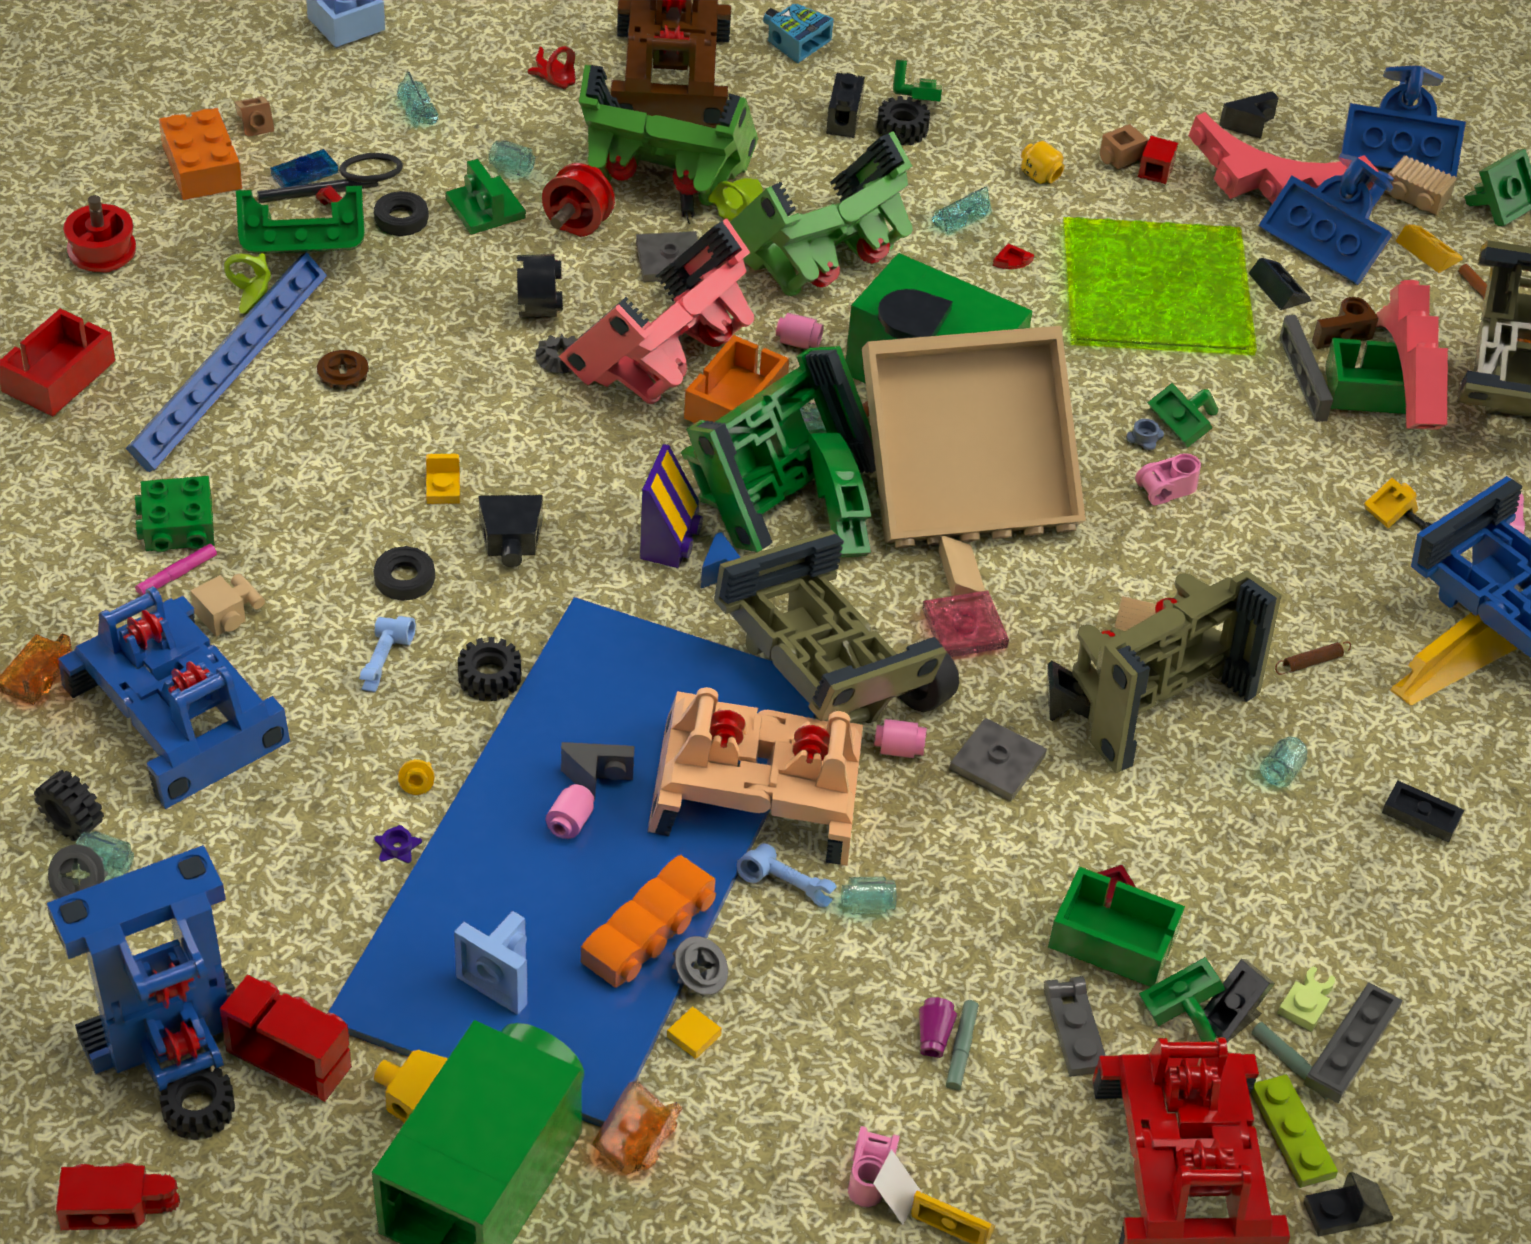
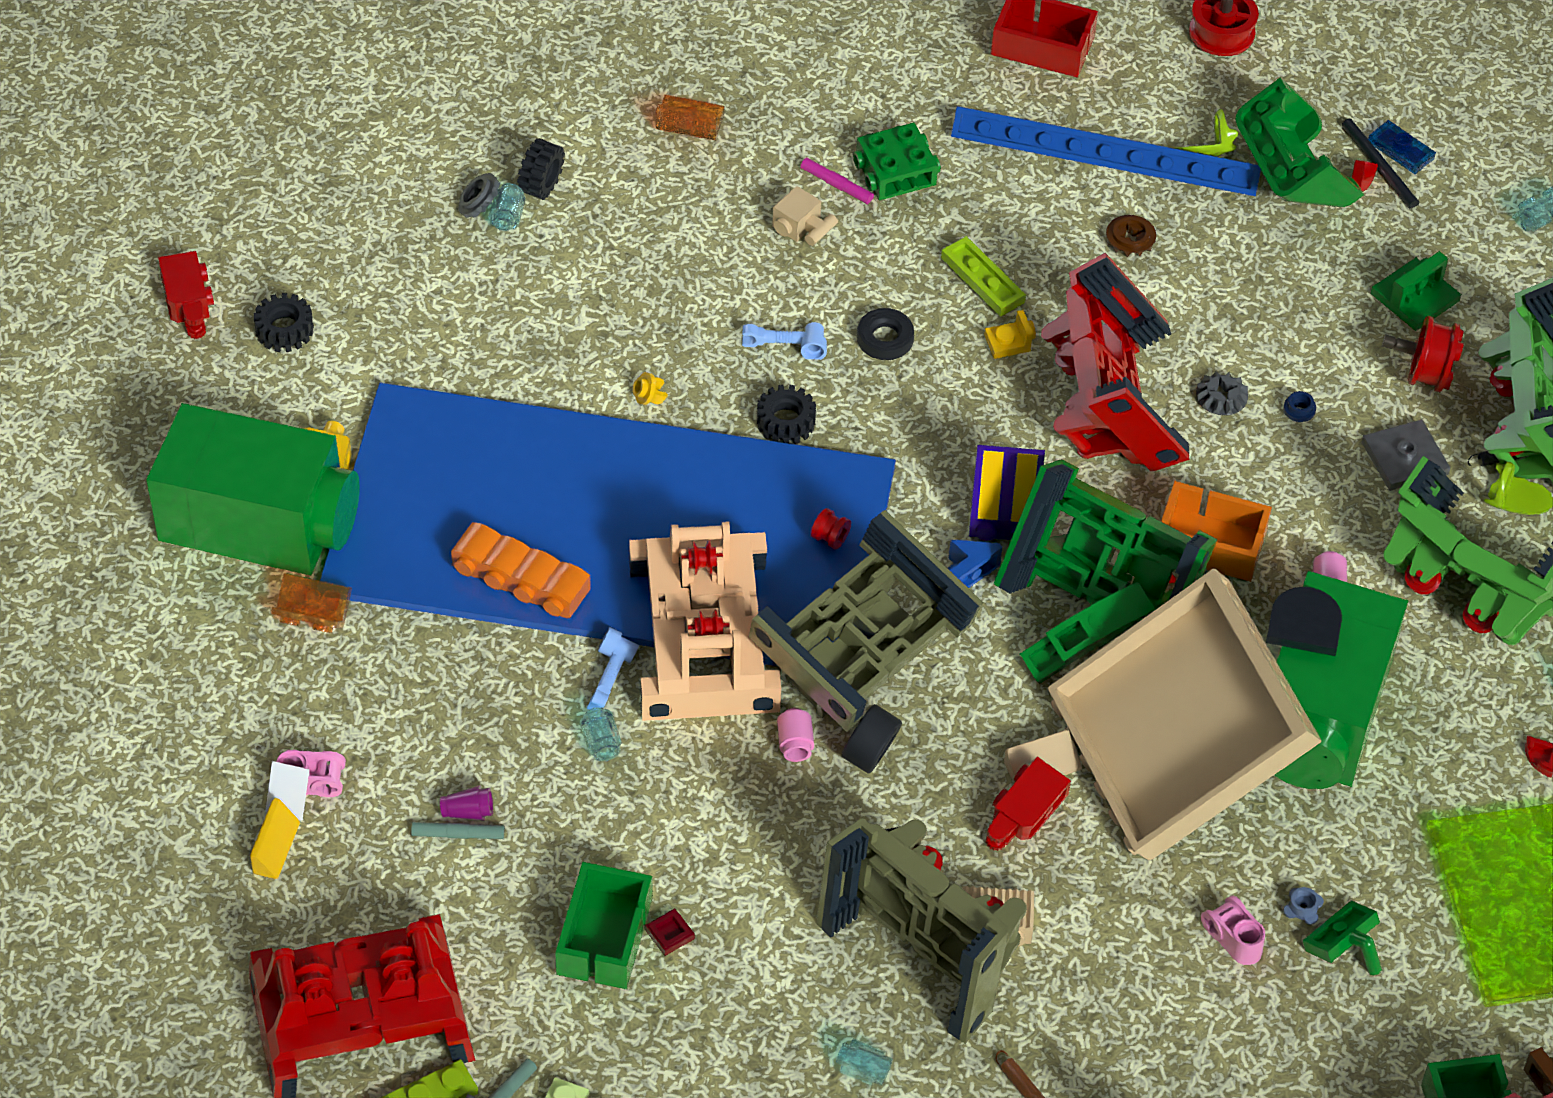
camera: 80 degrees right, 5 degrees up
(163, 996) = (338, 239): blue container -> none
(182, 683) = (682, 194): blue container -> none
(200, 153) = (1377, 62): orange piece -> none
(255, 115) = (1459, 87): medium nougat bracket -> none
(286, 1037) = (342, 354): red piece -> none
(357, 483) = (983, 276): none -> lime plate
(372, 178) = (1417, 173): black tyre -> none
(393, 836) = (579, 388): dark purple plate -> none
(401, 226) = (1370, 246): black tyre -> none
(495, 962) = (440, 468): light blue bracket -> none
(511, 157) = (1490, 297): clear light blue brick -> none
(511, 525) = (964, 395): black torso -> none
(538, 285) = (1291, 347): black brick -> none
(570, 811) = (626, 495): bright pink brick -> none
(587, 762) = (680, 499): dark grey slope -> none
(589, 416) = (1107, 368): none -> red container
(595, 306) = (1302, 400): none -> dark blue plate
(661, 655) = (831, 528): none -> red wheel
(694, 1032) = (425, 632): yellow tile -> none
(703, 289) = (1303, 477): coral container -> none
(706, 955) = (473, 615): dark grey gear -> none
(966, 623) = (965, 771): clear pink plate -> none
(998, 759) = (800, 820): flat silver plate -> none
(1018, 584) = (1027, 804): none -> red hinge
(1074, 1025) = (497, 915): dark grey plate -> none
(1184, 993) = (541, 986): green plate -> none
(1237, 1004) = (546, 1037): black slope -> none
(1305, 368) = (1483, 1043): dark grey tile -> none

